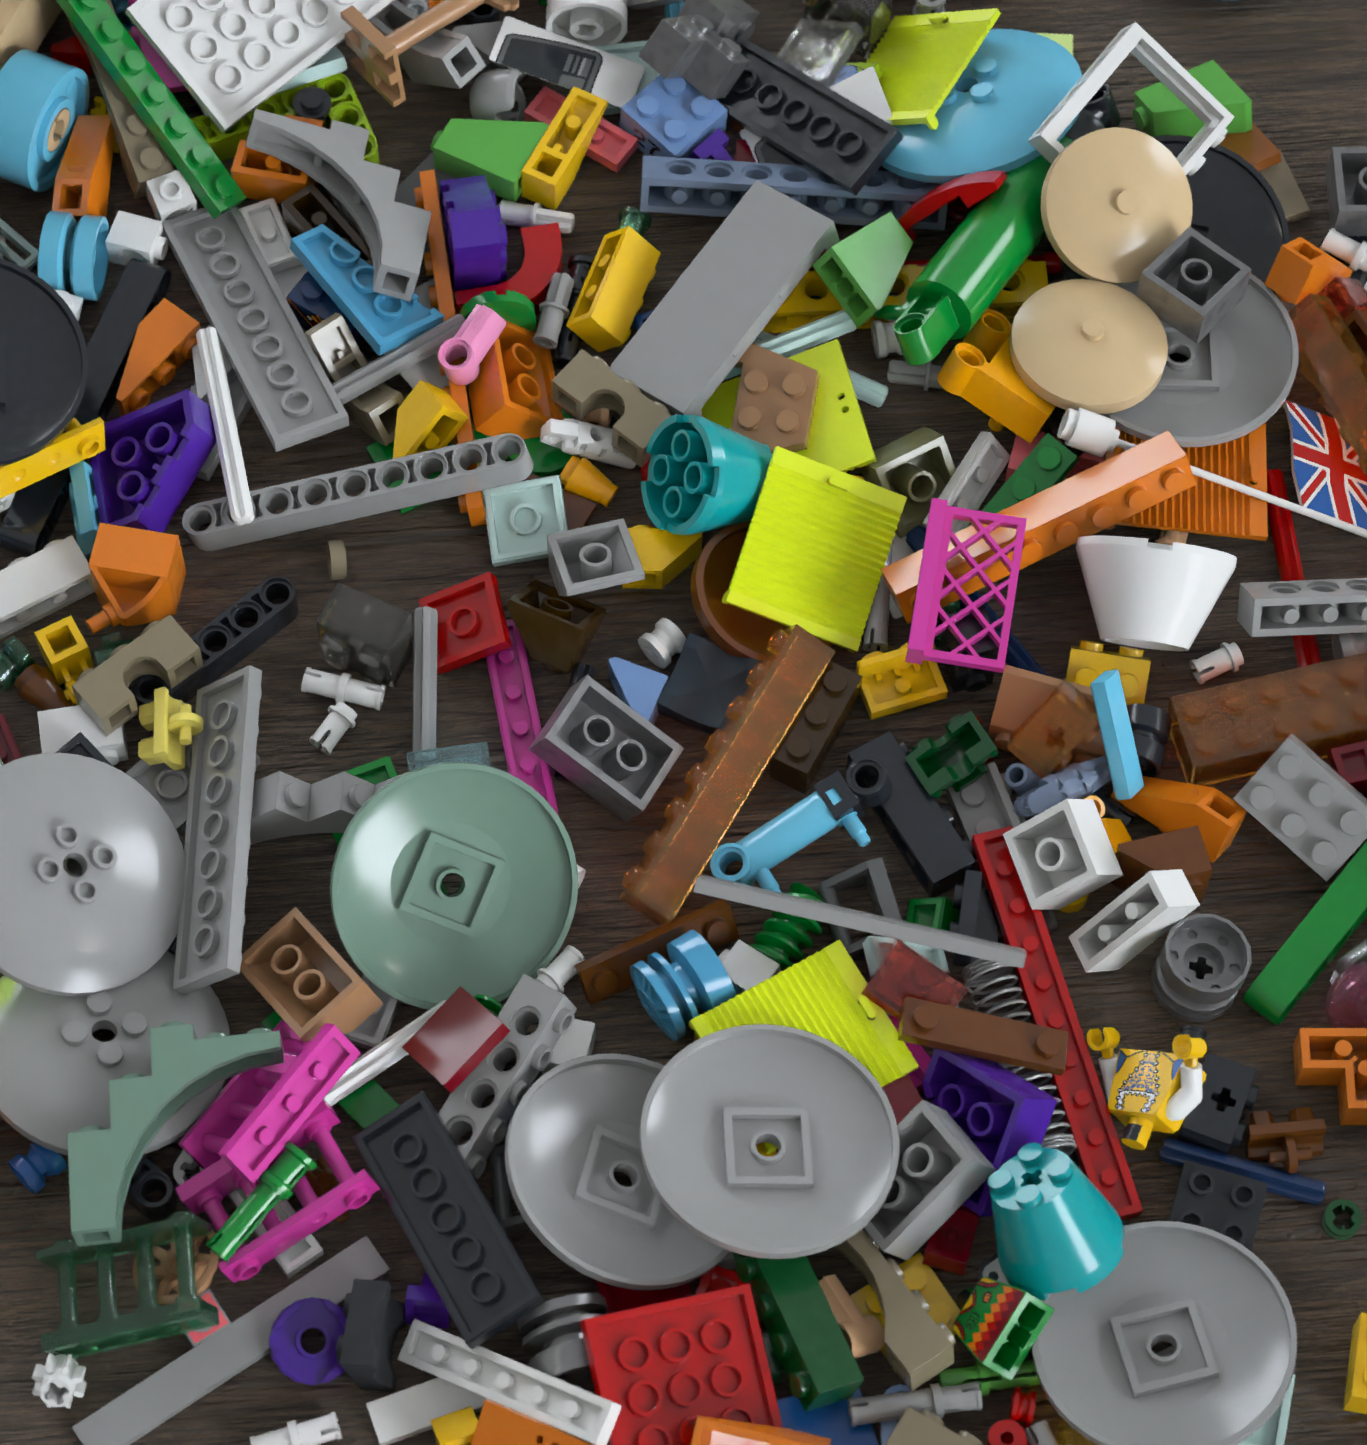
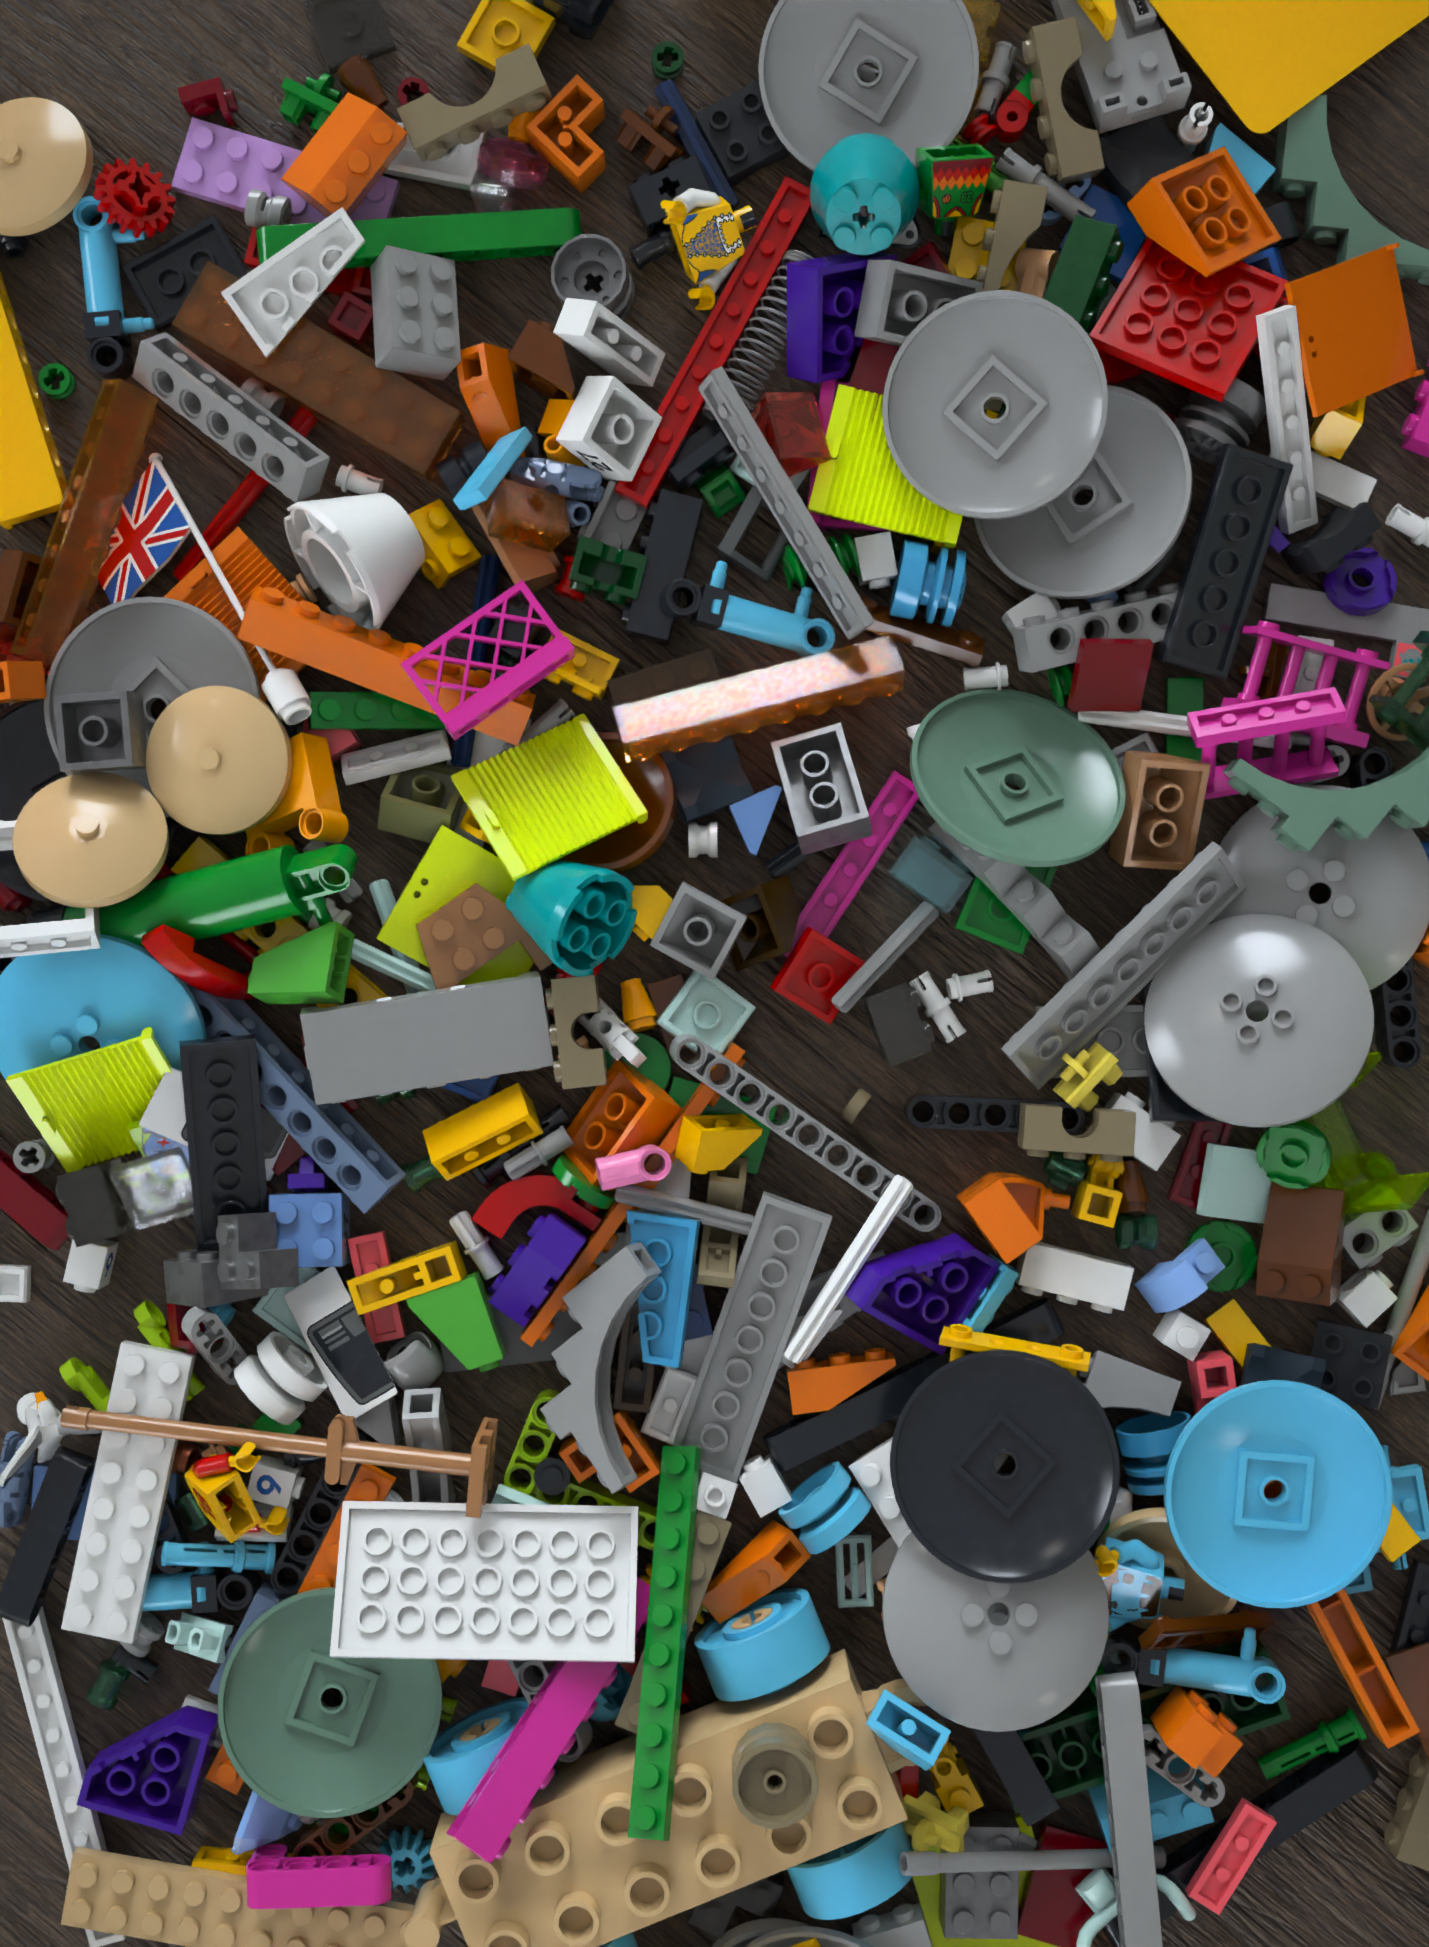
camera: 135 degrees left, 25 degrees up
(273, 1186) = (1318, 677): green pin -> none
(983, 1035) = (784, 357): reddish brown plate -> none

